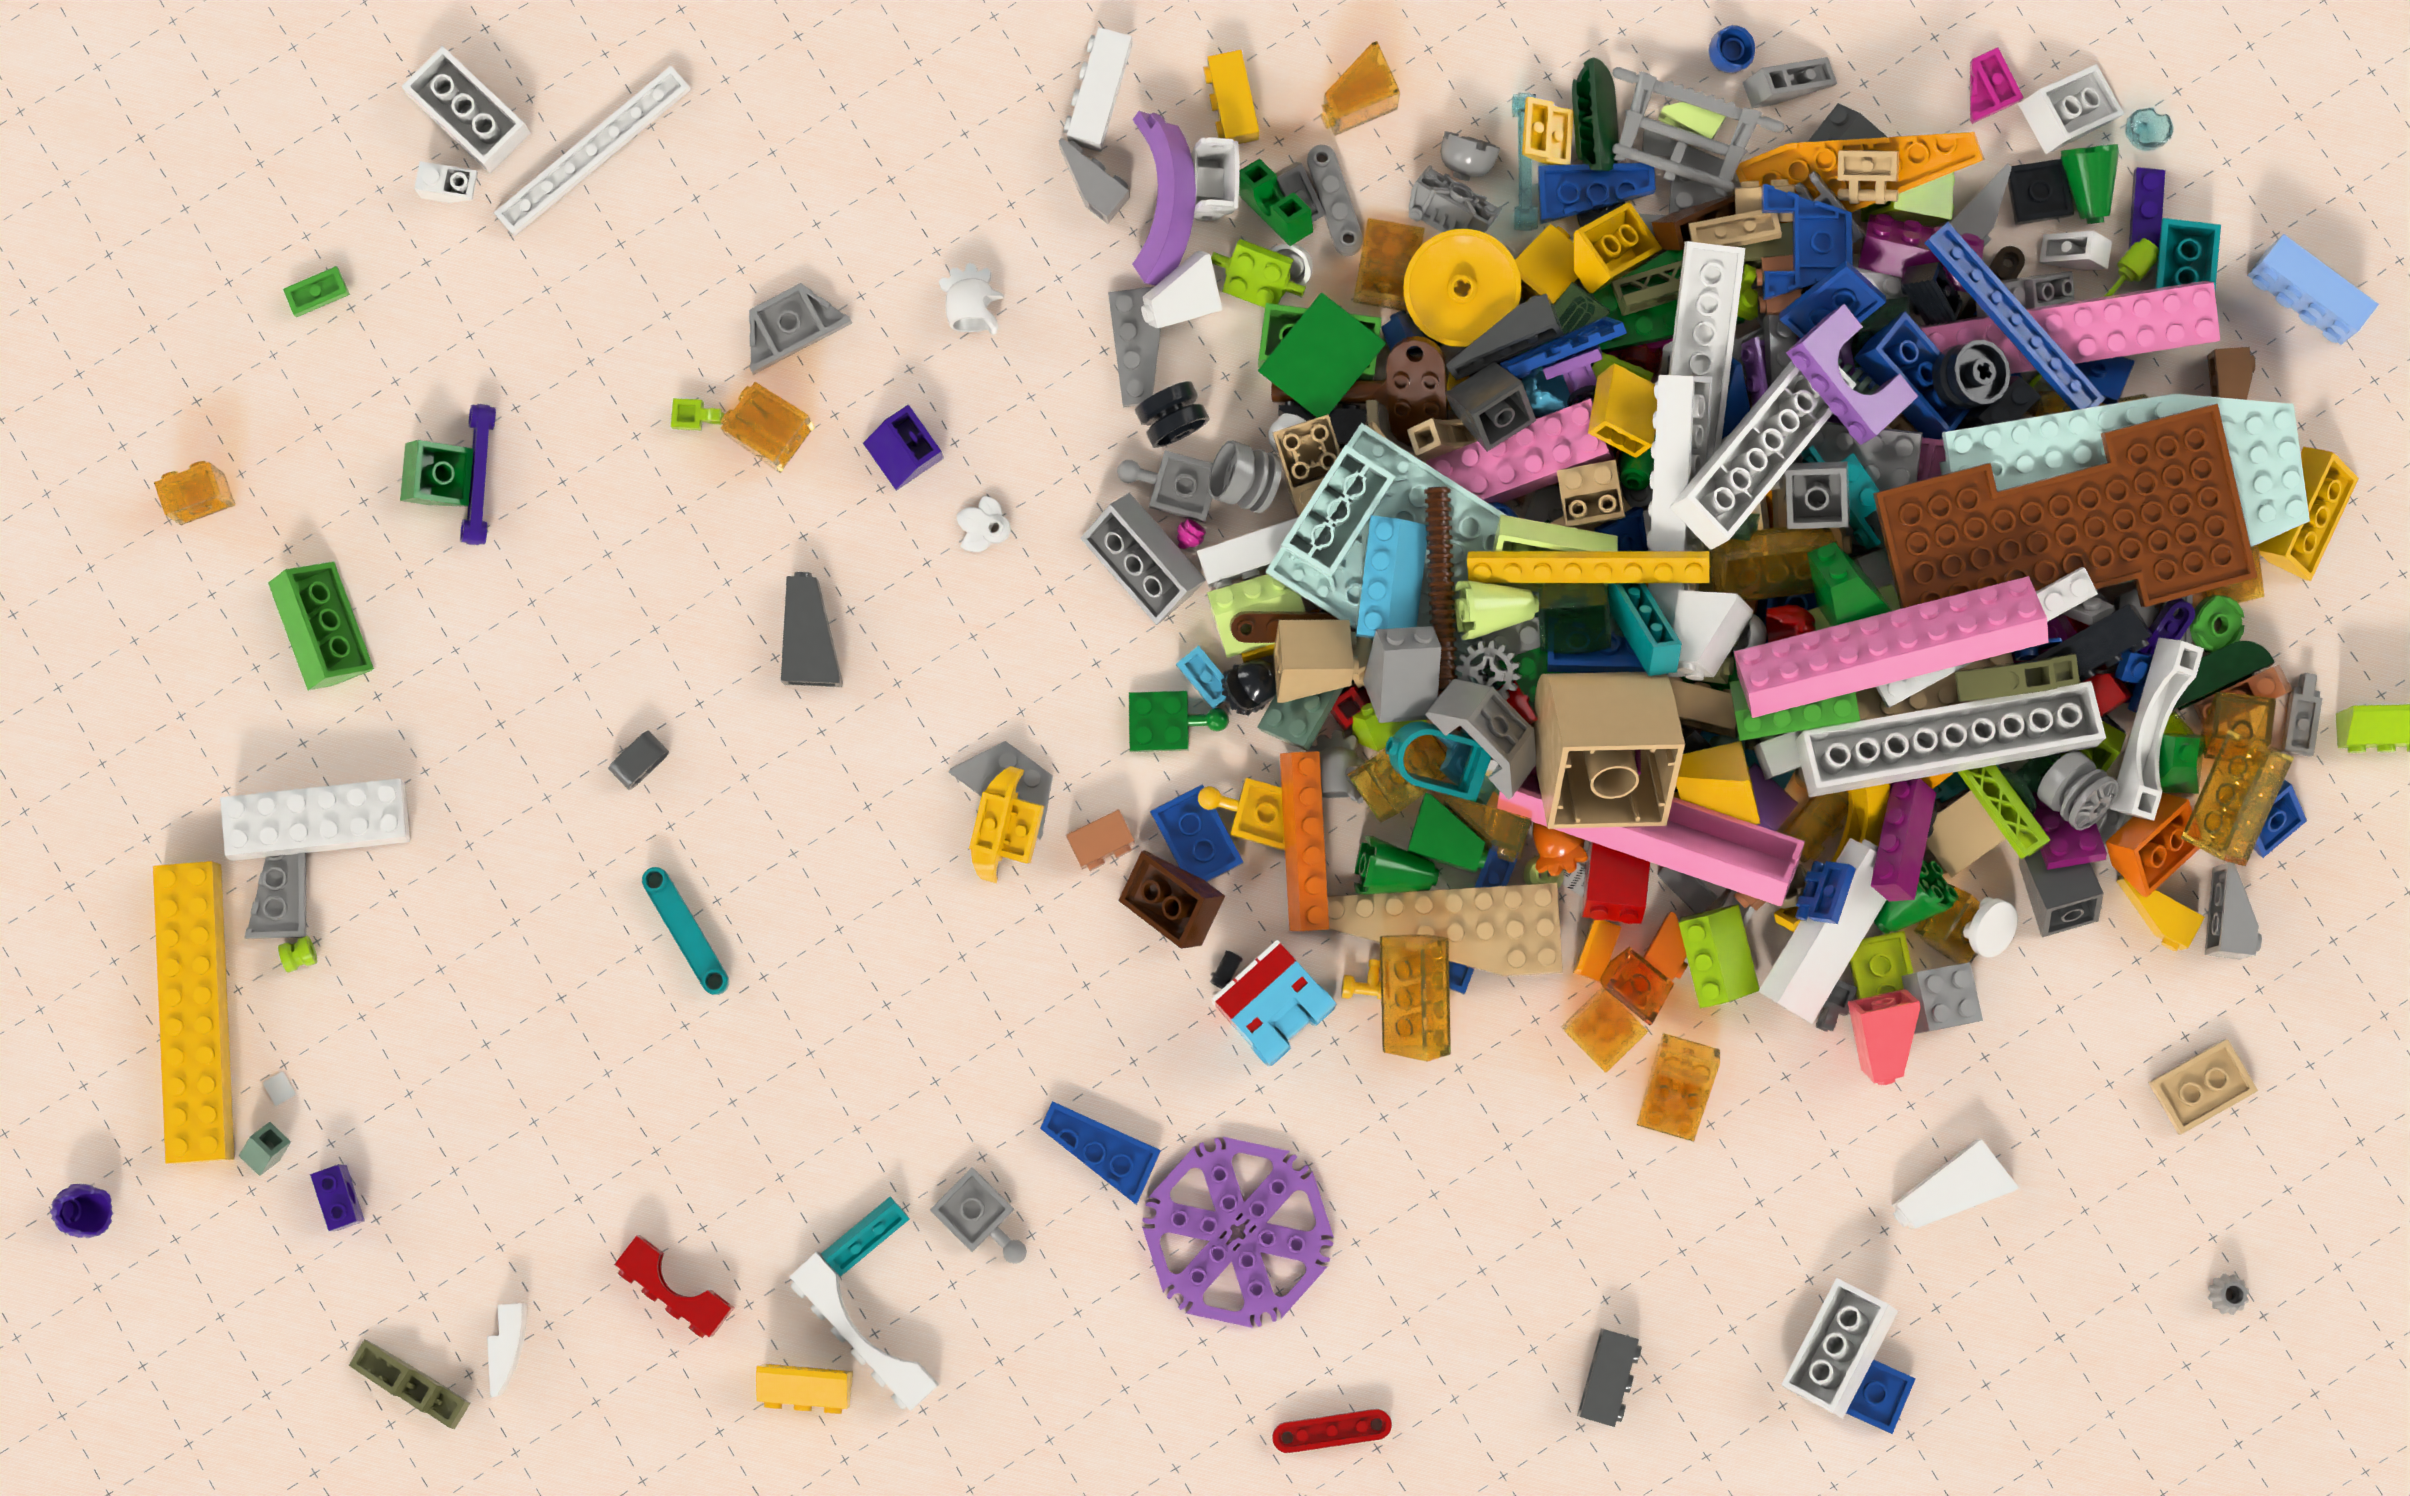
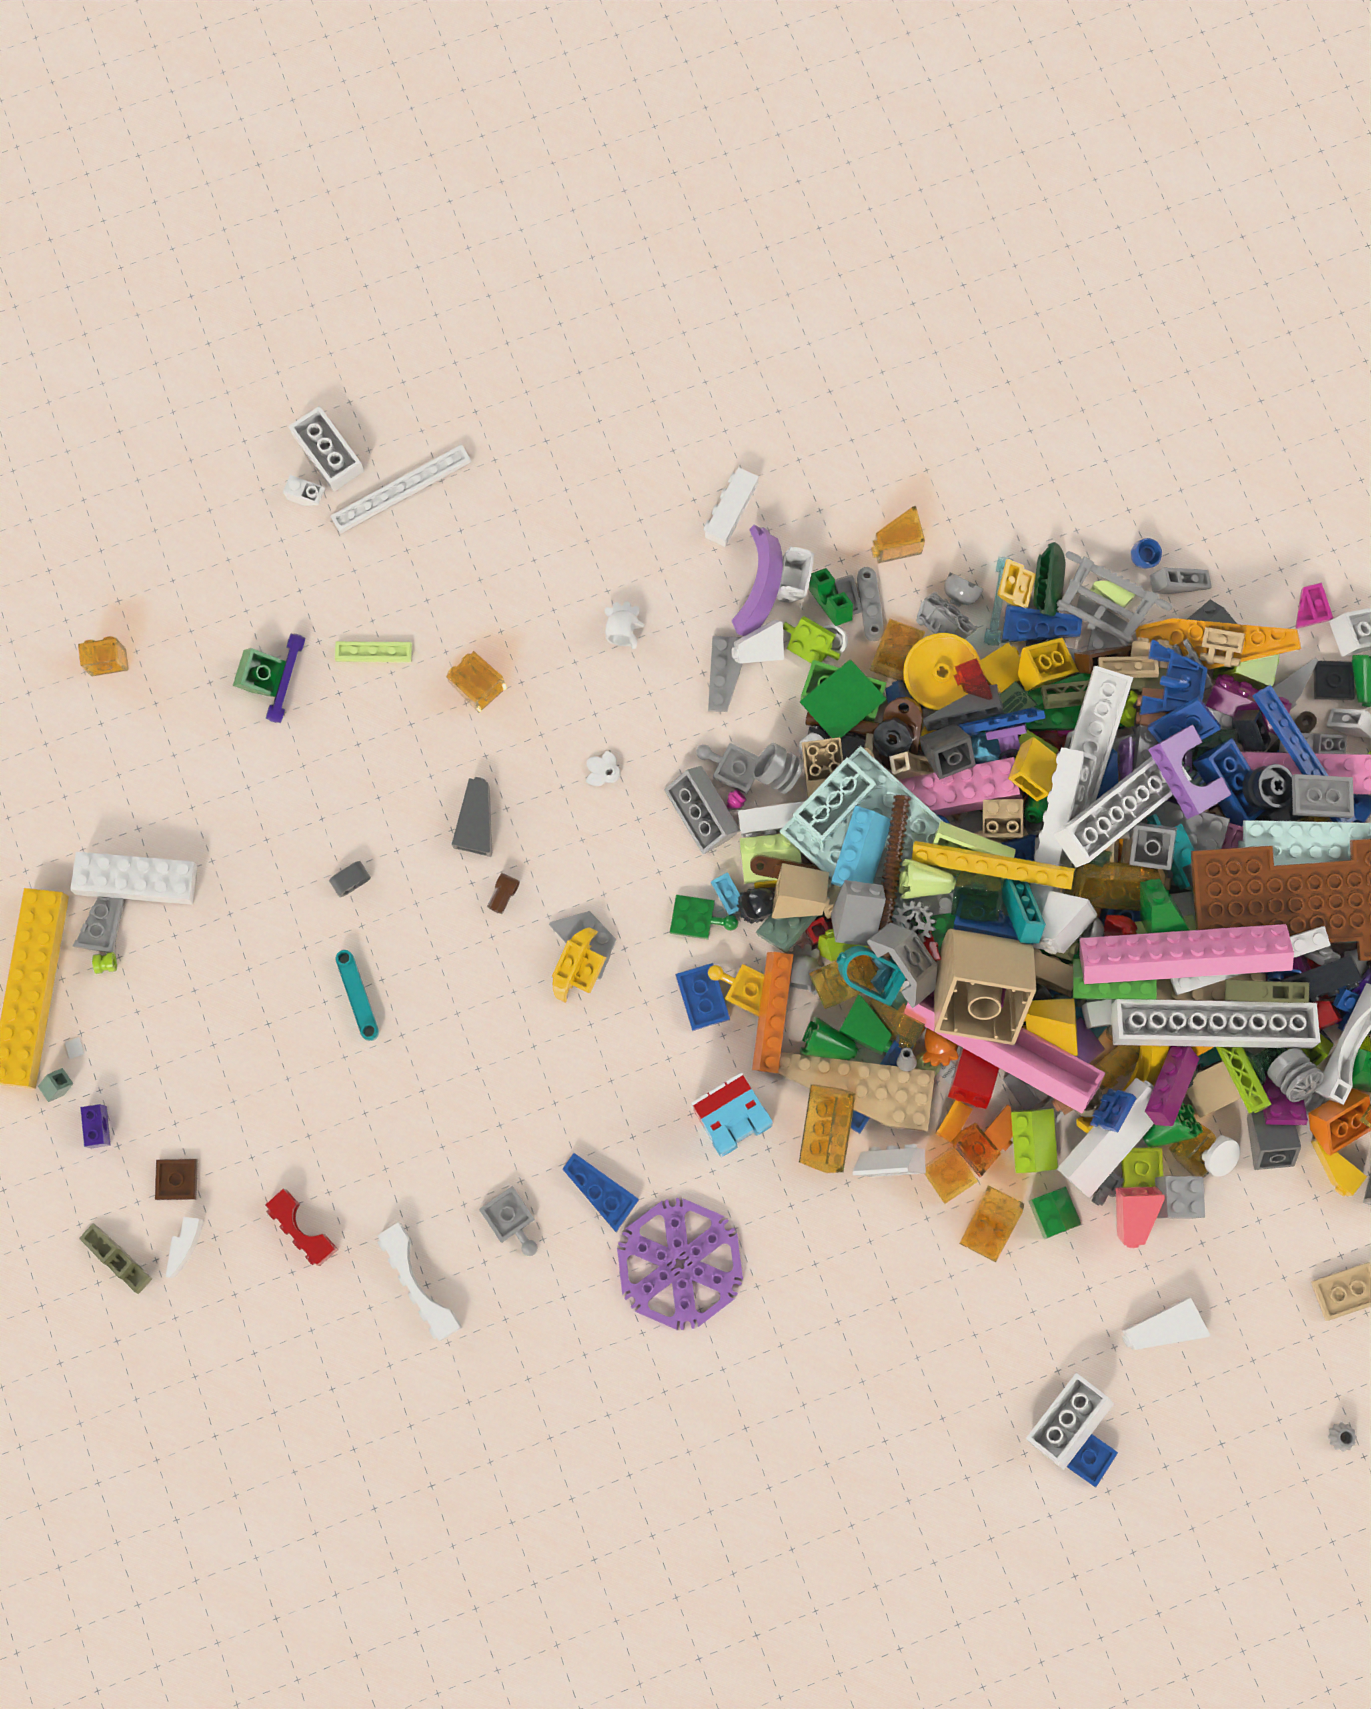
camera: 15 degrees right, 5 degrees down
(316, 291) = (208, 545): bright green plate -> none
(320, 625) = (165, 755): bright green slope -> none
(473, 1252) = (176, 1179): none -> reddish brown tile
(602, 409) = (373, 651): none -> yellowish green tile
(690, 413) = (430, 664): lime plate -> none
(789, 325) = (504, 619): light grey wing -> none
(803, 1387) = (372, 1311): yellow slope -> none
(865, 1236) = (433, 1218): teal plate -> none
(872, 731) = (504, 888): none -> reddish brown piece
(903, 447) = (560, 710): dark purple slope -> none
(1098, 190) = (718, 569): light grey slope -> none
(1100, 840) = (639, 987): nougat brick -> none
(1171, 900) = (678, 1035): reddish brown slope -> none
(1172, 414) = (738, 720): black wheel -> none
(1226, 969) = (705, 1087): black pin -> none
(1231, 97) = (816, 526): yellow brick -> none
(1331, 1430) = (717, 1410): red plate -> none
(1372, 987) = (798, 1118): yellow piece -> none
(1411, 385) = (897, 728): none -> black plate
(1509, 293) = (972, 679): none -> clear red slope
(1513, 880) = (906, 1060): none -> light grey cone
(1517, 1026) = (891, 1161): none -> white slope
(1609, 1378) = (910, 1411): dark grey brick -> none
(1766, 1054) = (1054, 1212): none -> green slope
(1808, 244) = (1171, 682): none -> blue arm
(2051, 374) = (1322, 796): none -> light grey plate

